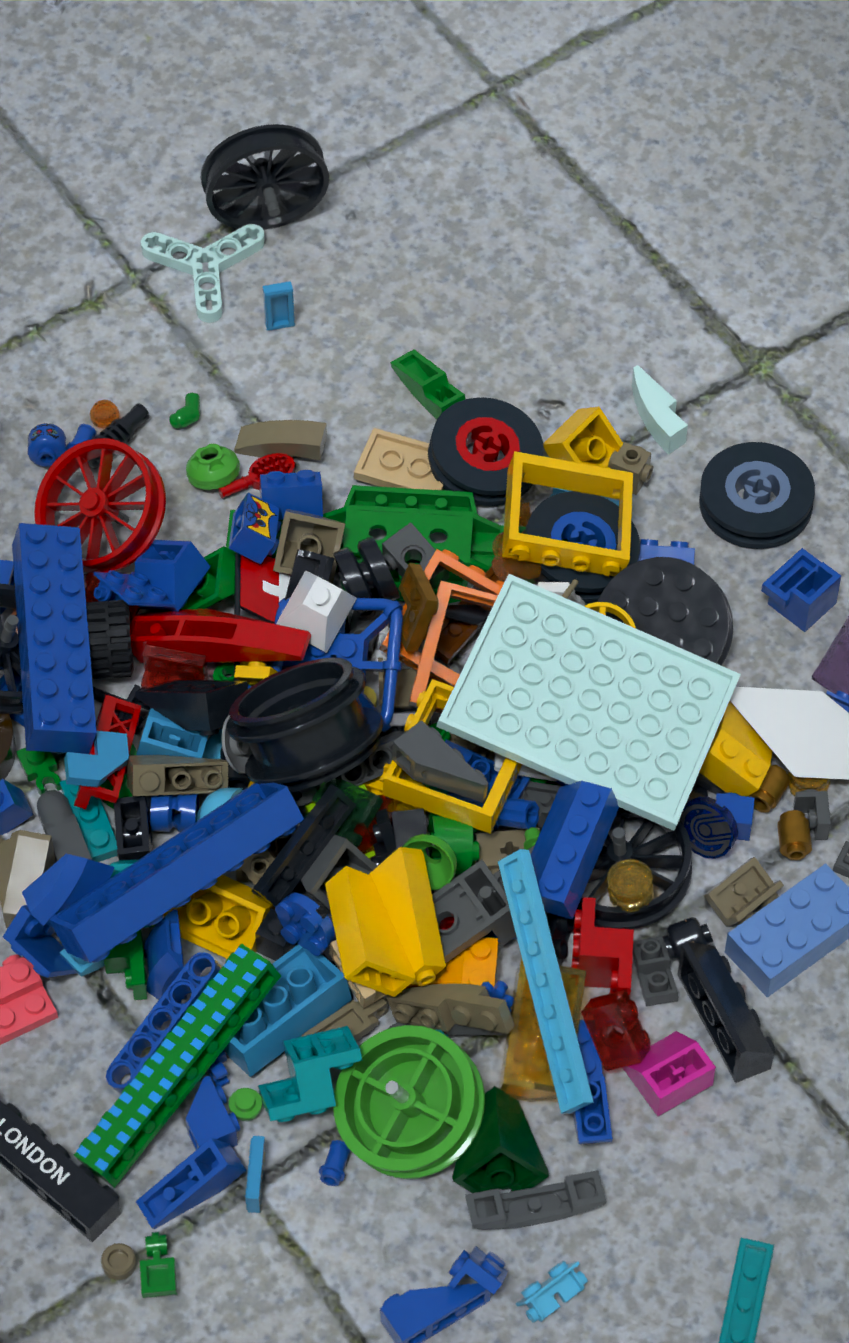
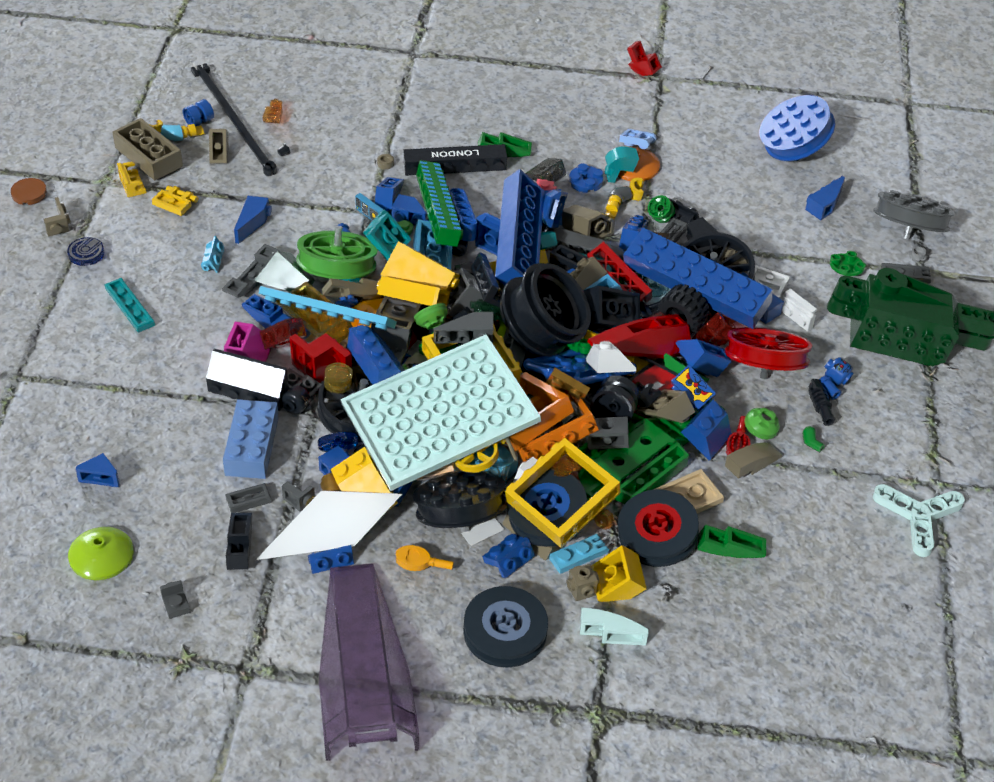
camera: 130 degrees right, 10 degrees down
(93, 770) = (607, 249): dark azure tile -> none
(103, 413) = (842, 407): clear orange plate -> none
(131, 588) = (699, 323): blue hinge -> none
(159, 1273) = (365, 163): green plate -> none
(264, 177) = (945, 539): black wheel -> none
(278, 305) = (848, 507): dark azure tile -> none
(304, 924) = (456, 256): blue plate -> none
(482, 1267) = (243, 231): blue bracket -> none
(742, 893) = (292, 437): dark tan bracket -> none
(763, 636) = (417, 559): none -> light orange piece
(794, 835) = (297, 477): pearl gold brick -> none
(802, 589) = (422, 589): blue plate -> none

